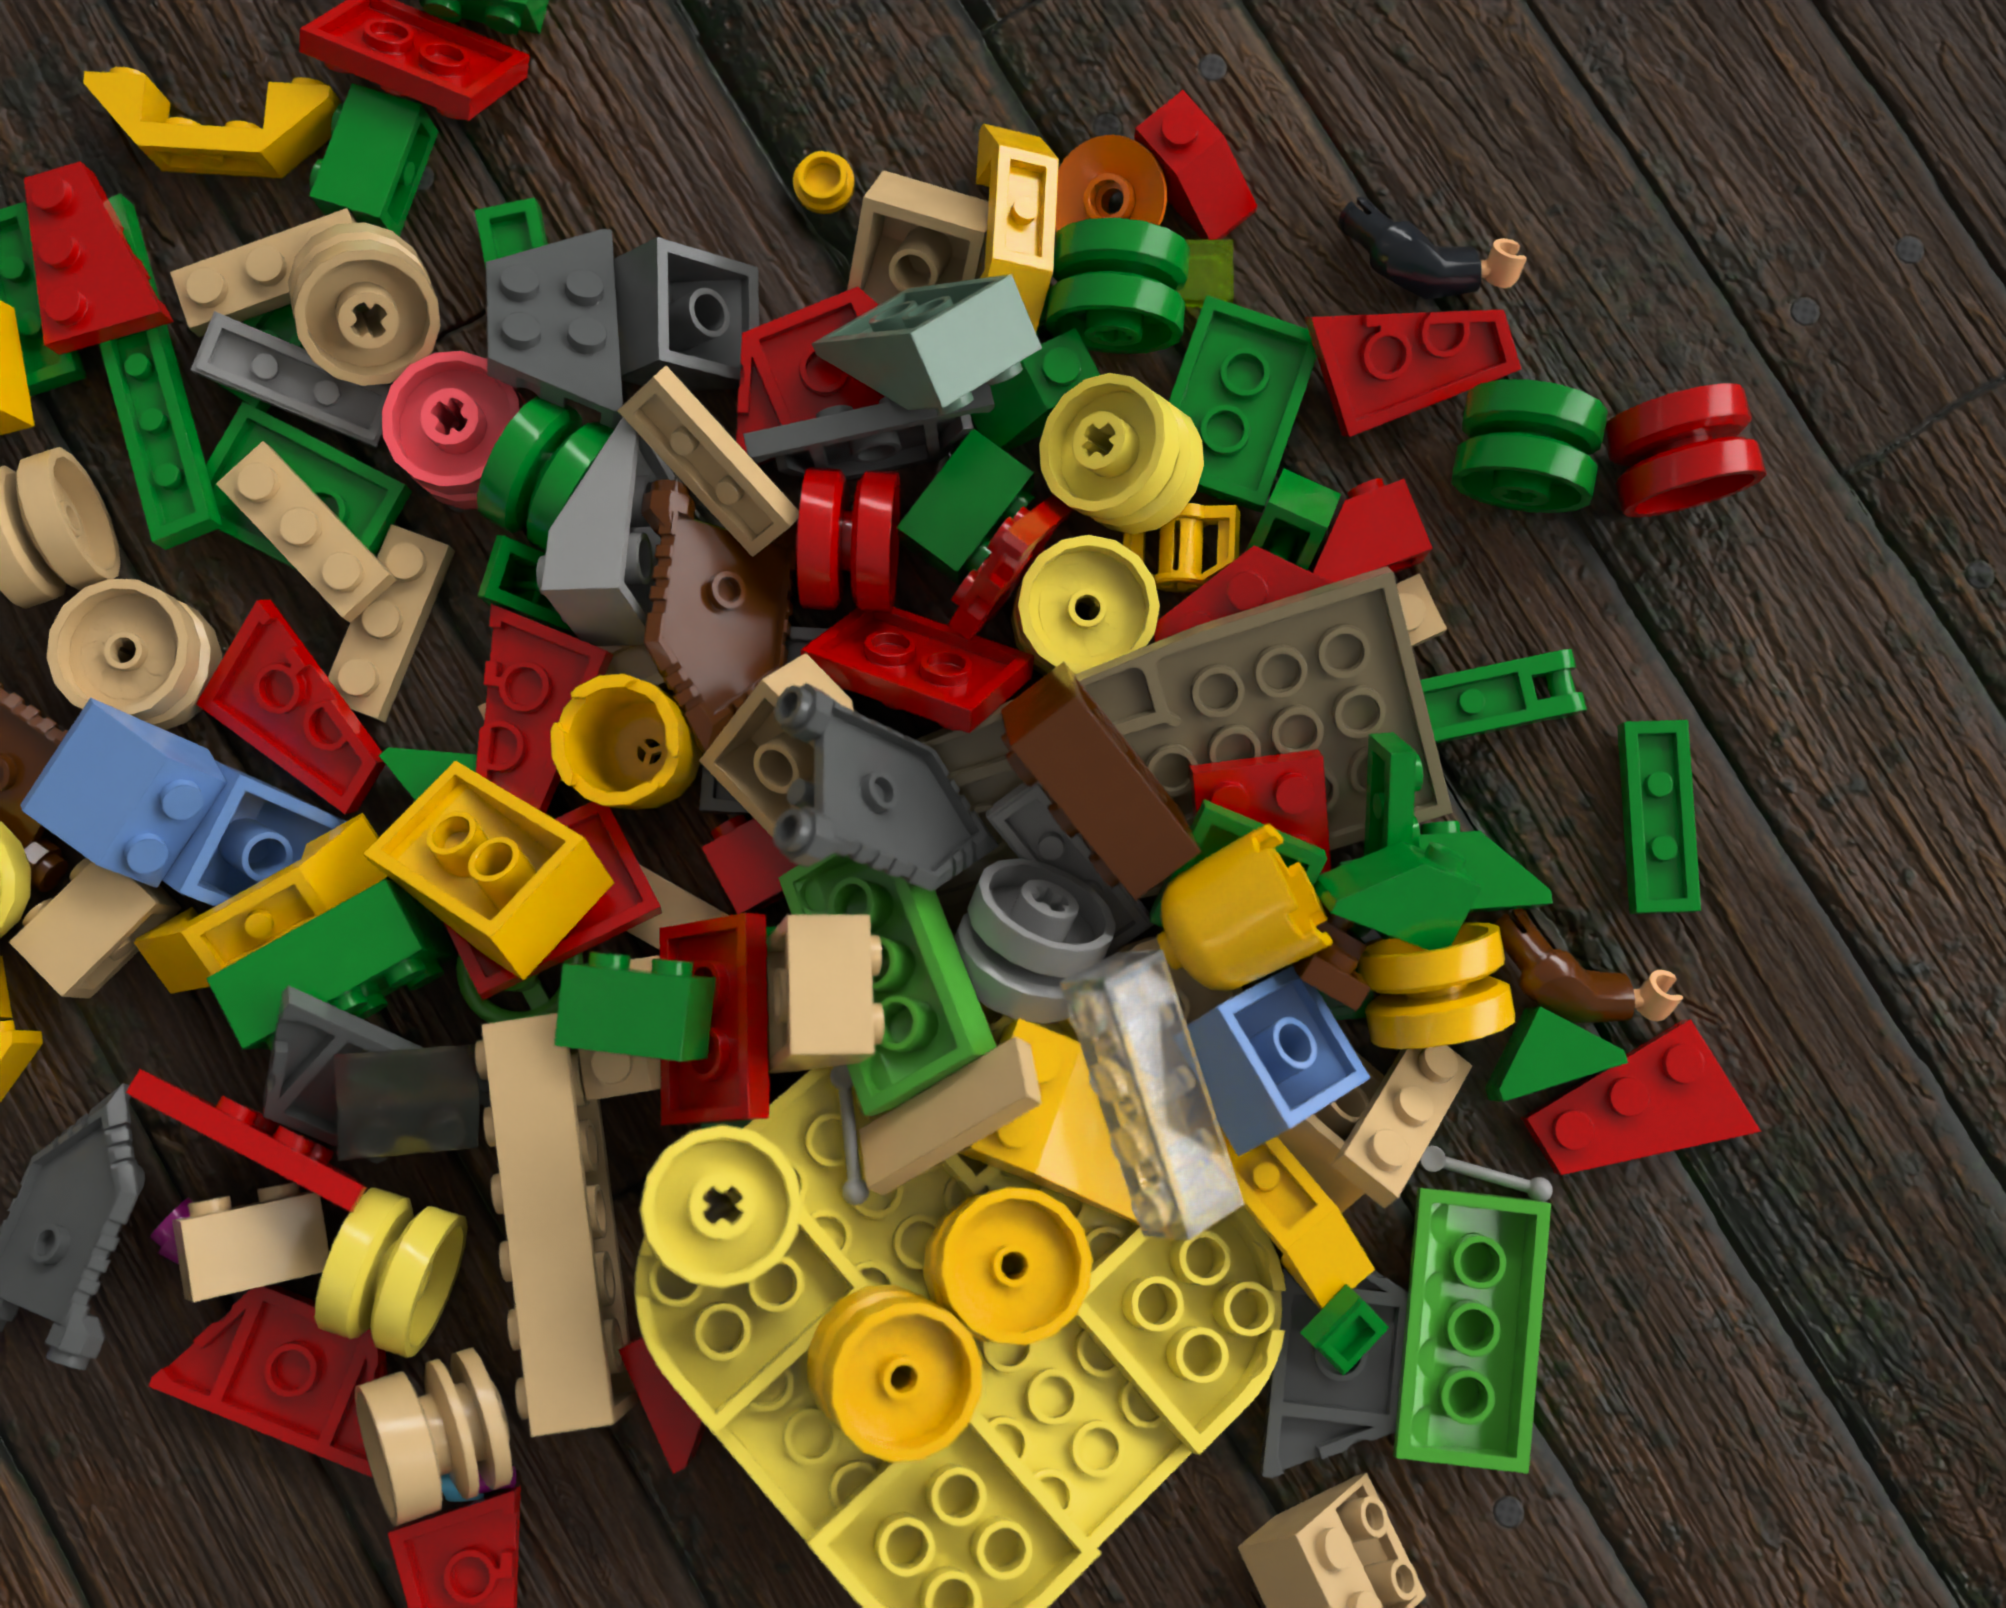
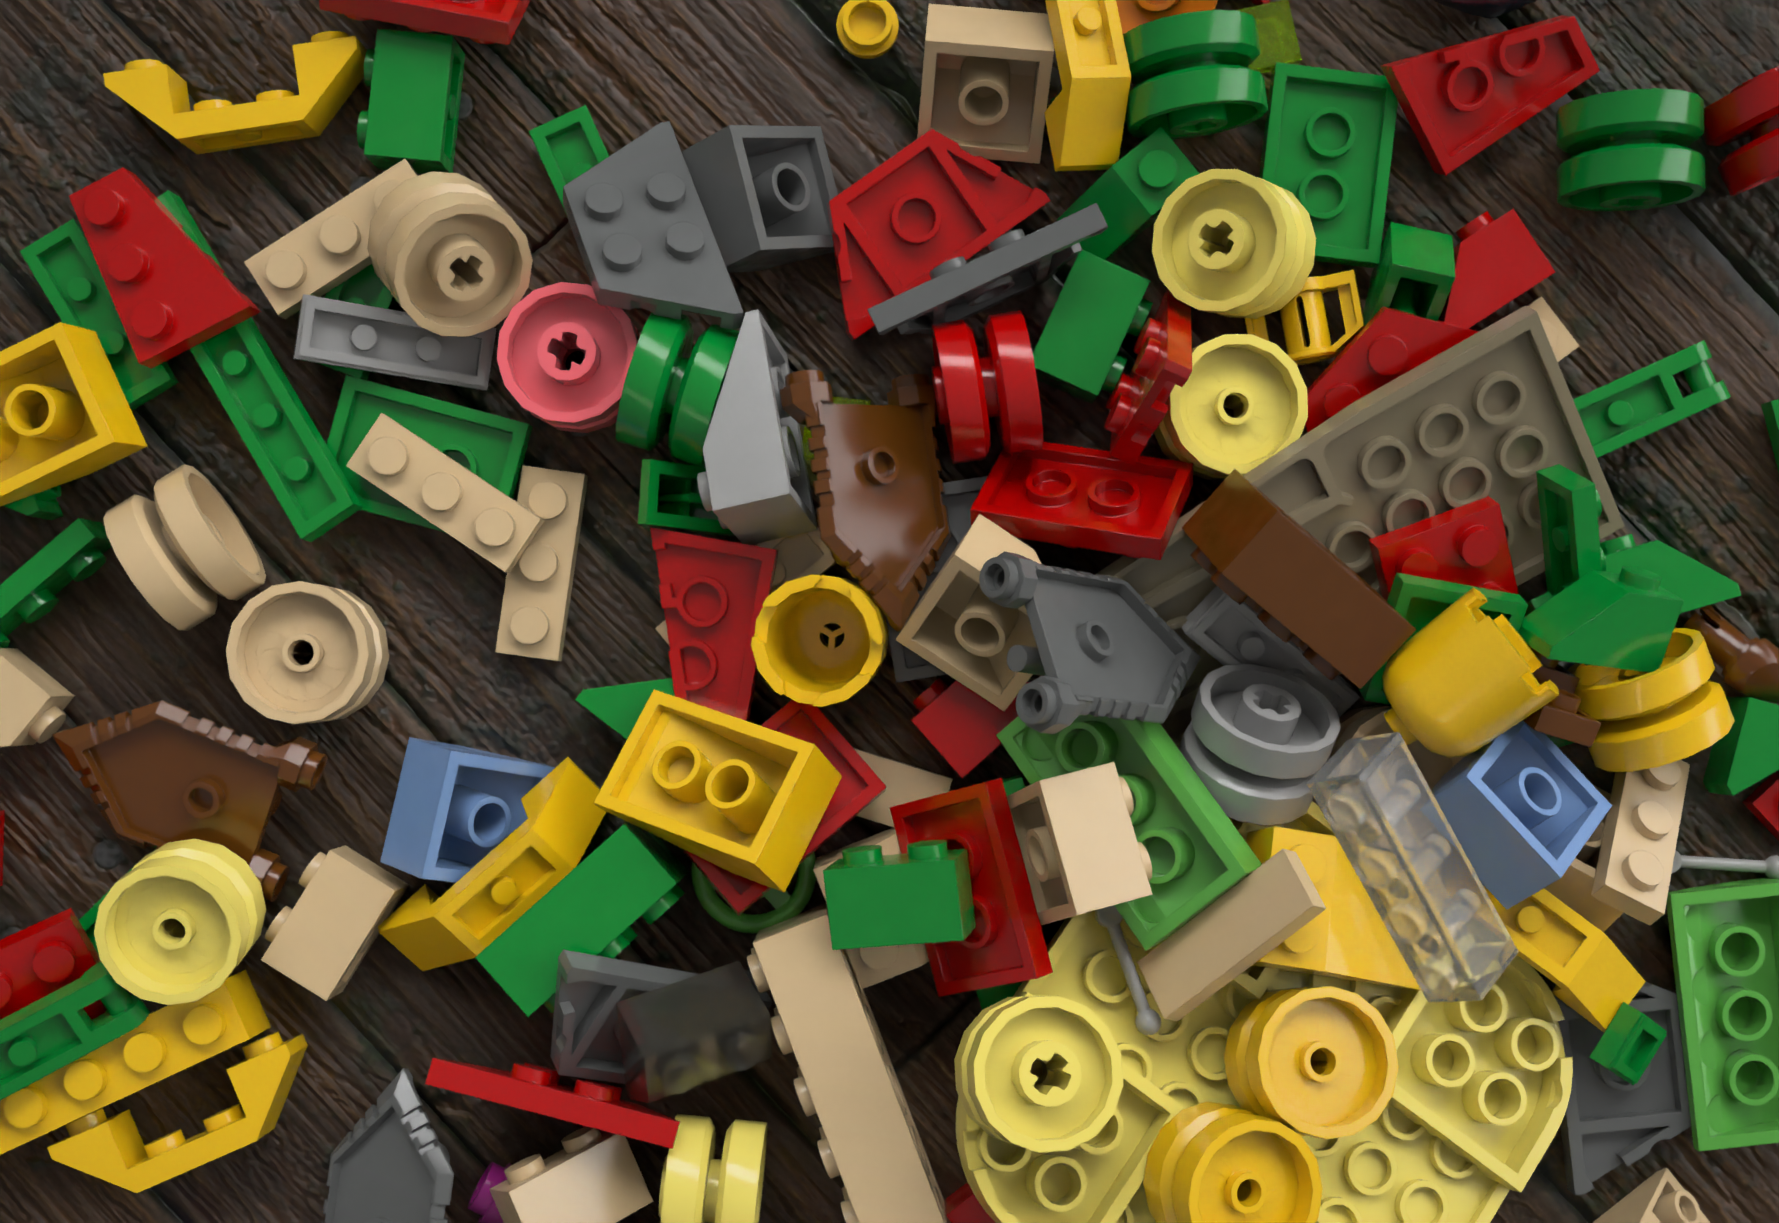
camera: 20 degrees left, 5 degrees up
(125, 792) = (342, 792): medium blue slope -> none
(291, 711) = (473, 673): red wing -> none
(709, 461) = (840, 344): tan plate -> none
(936, 342) = (1034, 176): sand green slope -> none

